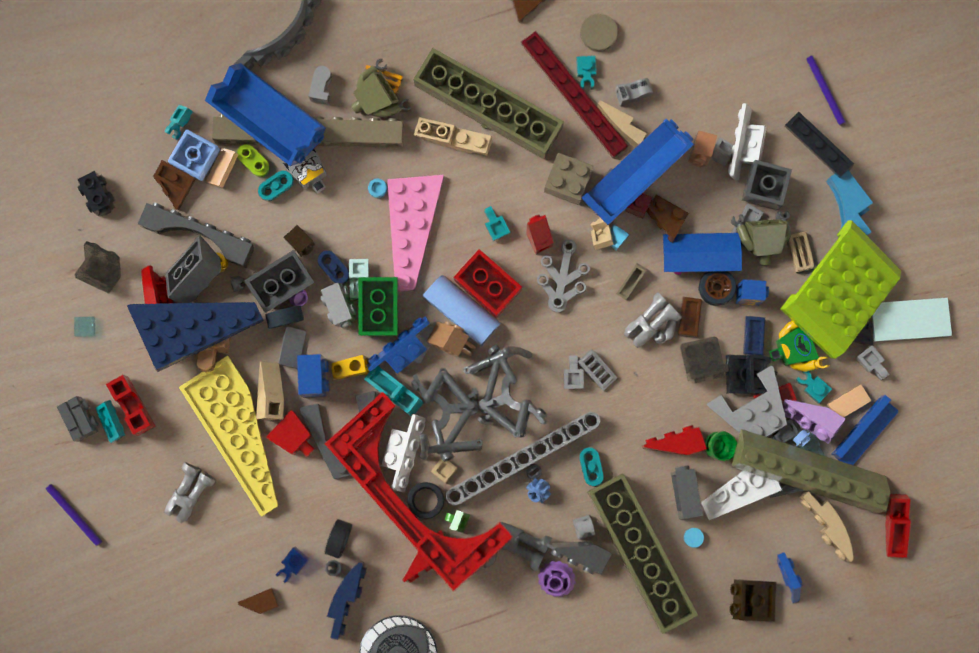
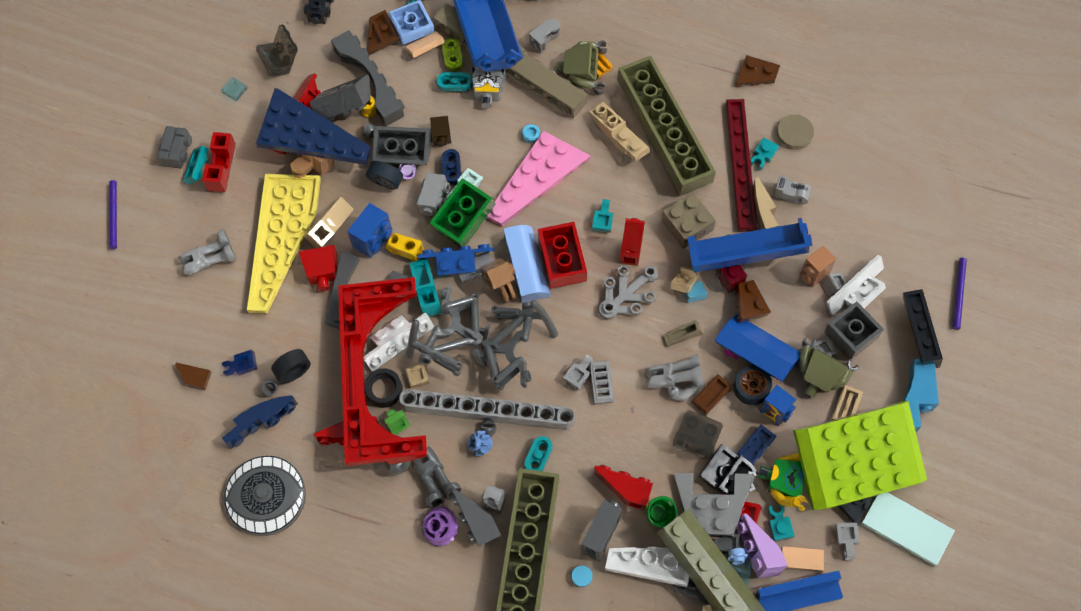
camera: 35 degrees right, 15 degrees down
(291, 347) = (377, 196): light grey slope -> none

